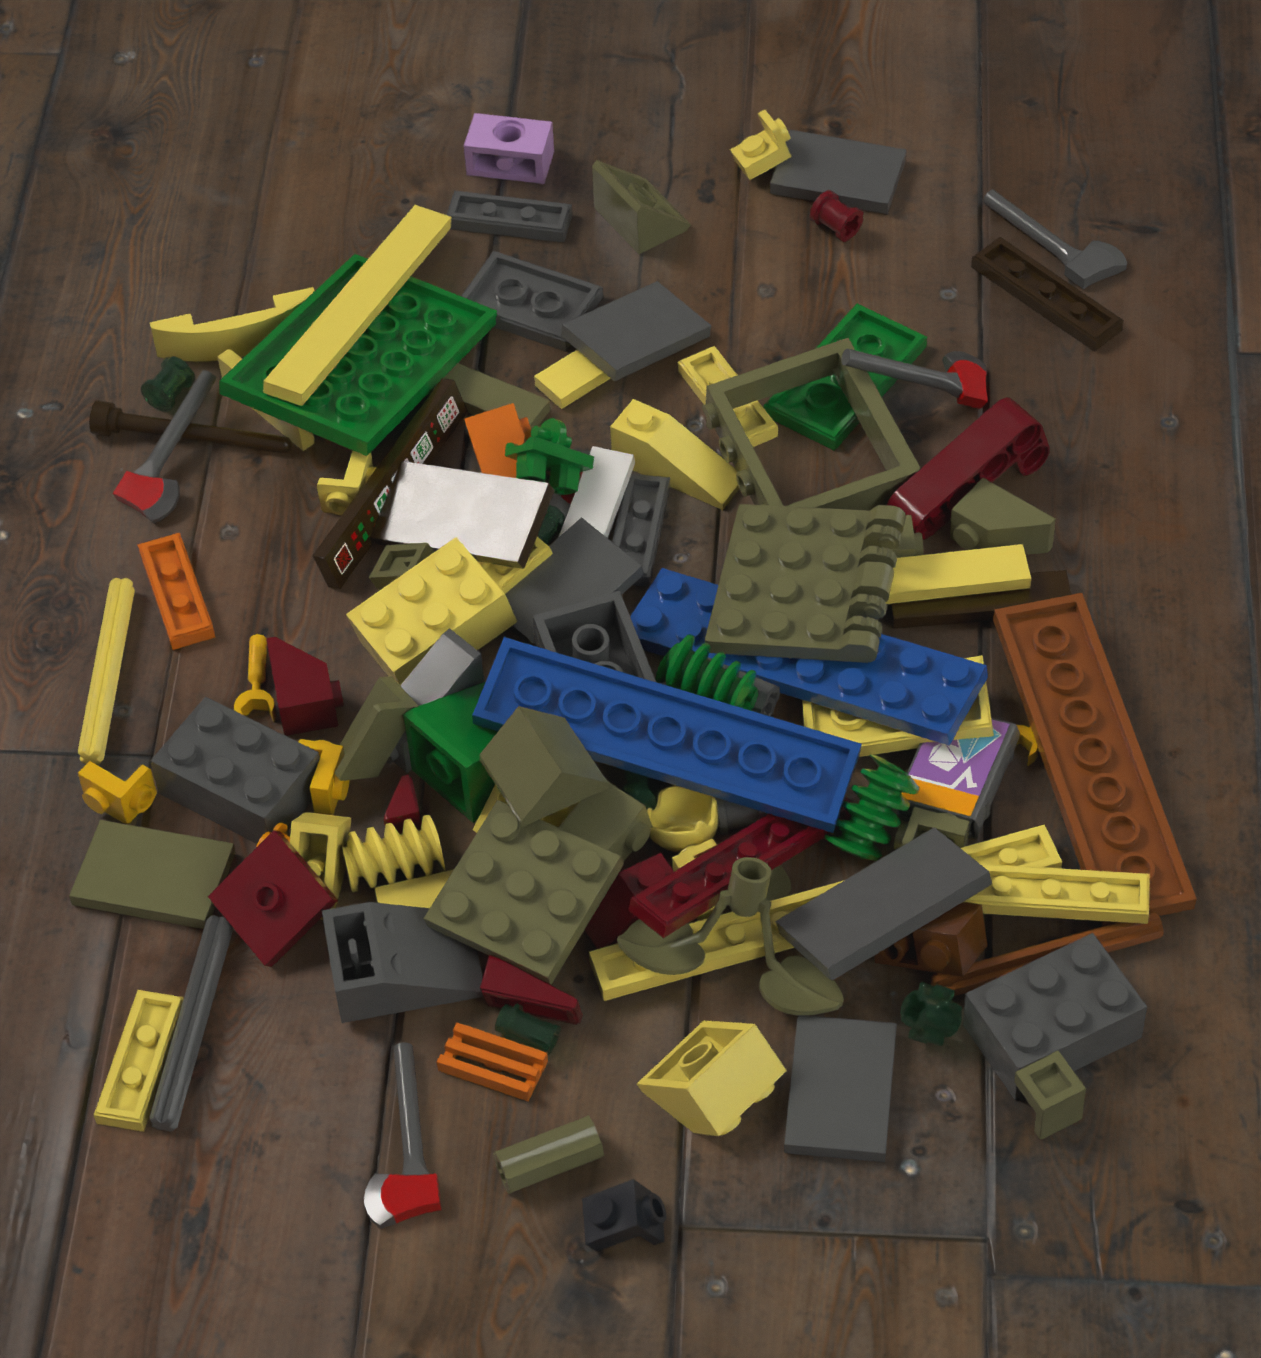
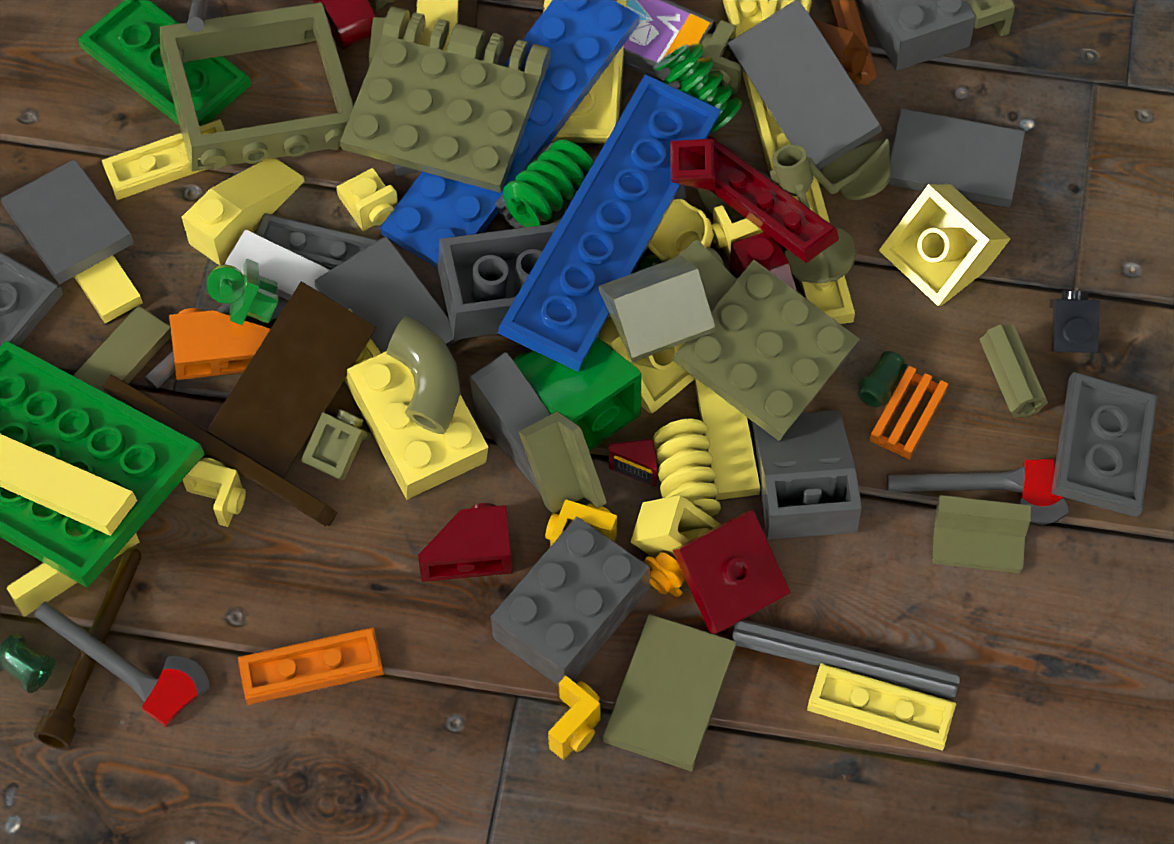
camera: 85 degrees left, 10 degrees up
(106, 671) = (406, 732): light yellow axle -> none
(256, 698) = (439, 592): yellow piece -> none
(340, 1137) = (980, 534): none -> olive panel
(445, 592) = (433, 373): none -> olive cylinder
(463, 1254) = (1104, 444): none -> dark grey tile
(510, 985) = (847, 381): dark red slope -> none
(699, 557) = (368, 199): none -> light yellow bracket
(747, 800) = (693, 163): none -> dark red slope
(931, 1014) = (906, 89): clear green gear -> none

